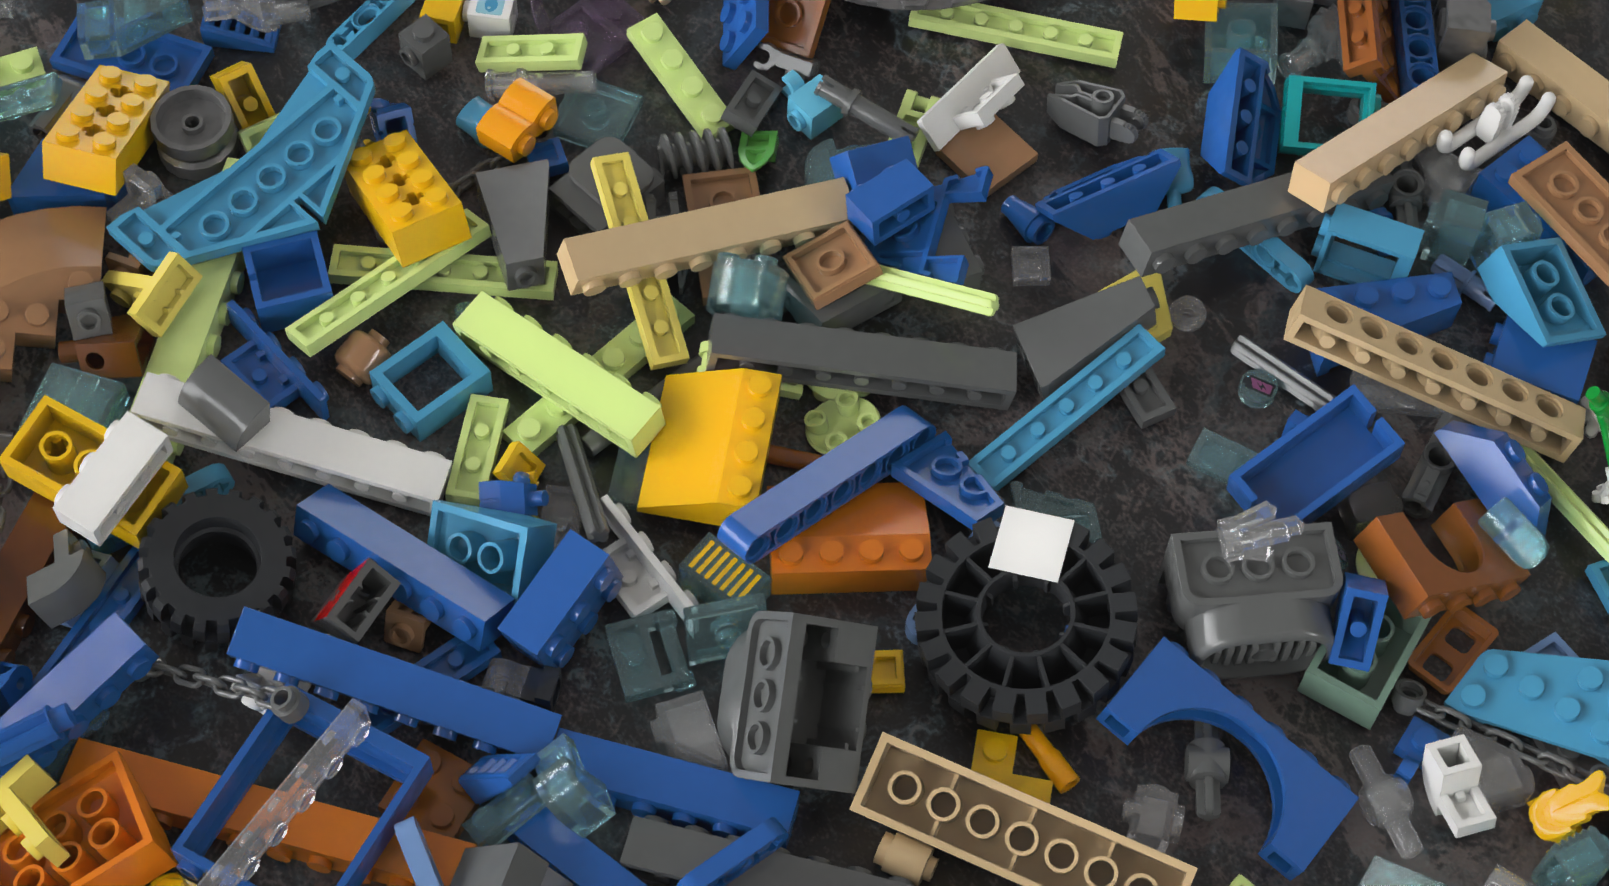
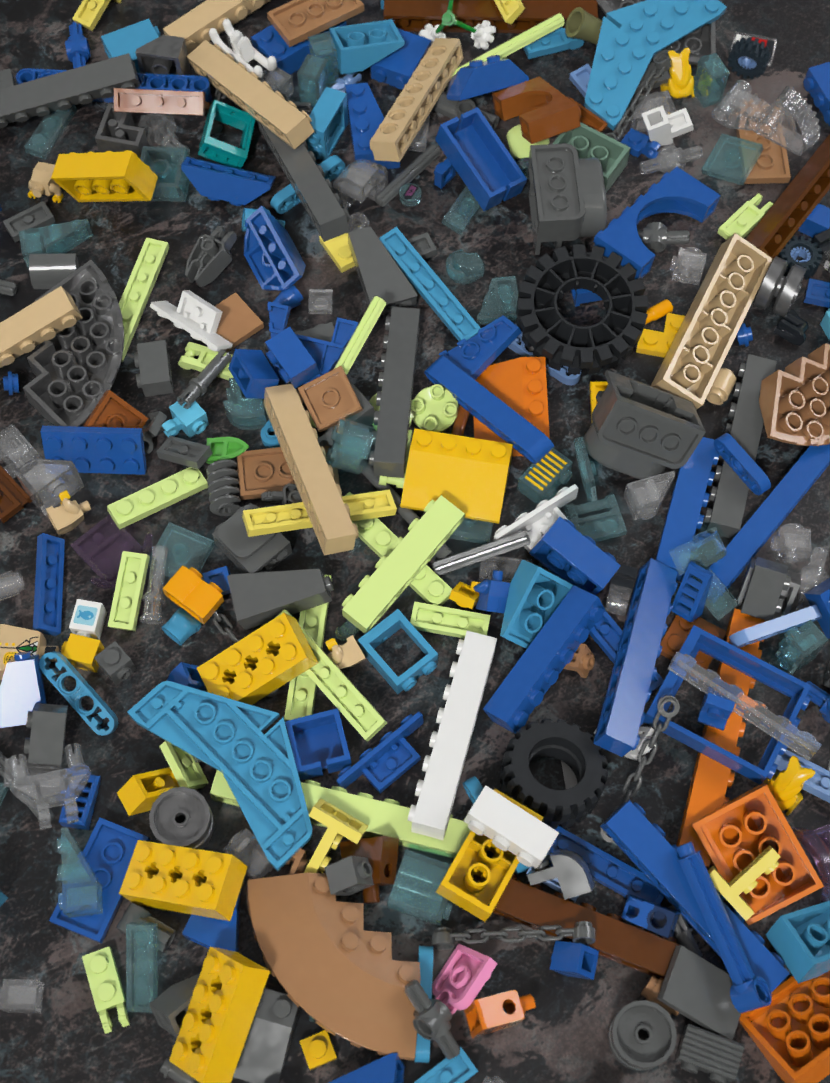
camera: 85 degrees left, 5 degrees up
(224, 403) = (441, 764): dark grey brick -> none
(275, 772) = (715, 711): none -> blue brick
(348, 610) = (580, 683): dark grey torso -> none
(360, 355) = (380, 694): medium nougat head -> none
(422, 309) = (345, 655): none -> tan piece
(894, 60) = (154, 368): none -> dark grey brick
(1031, 544) = (539, 295): white sticker -> none
(1112, 461) = (464, 267): none -> clear light blue hair
(1253, 531) = (546, 175): clear rock -> none
(1260, 300) = (360, 180): none -> clear brick
(1358, 621) = (585, 142): blue slope -> none
(1515, 534) = (521, 75): clear light blue arm -> none

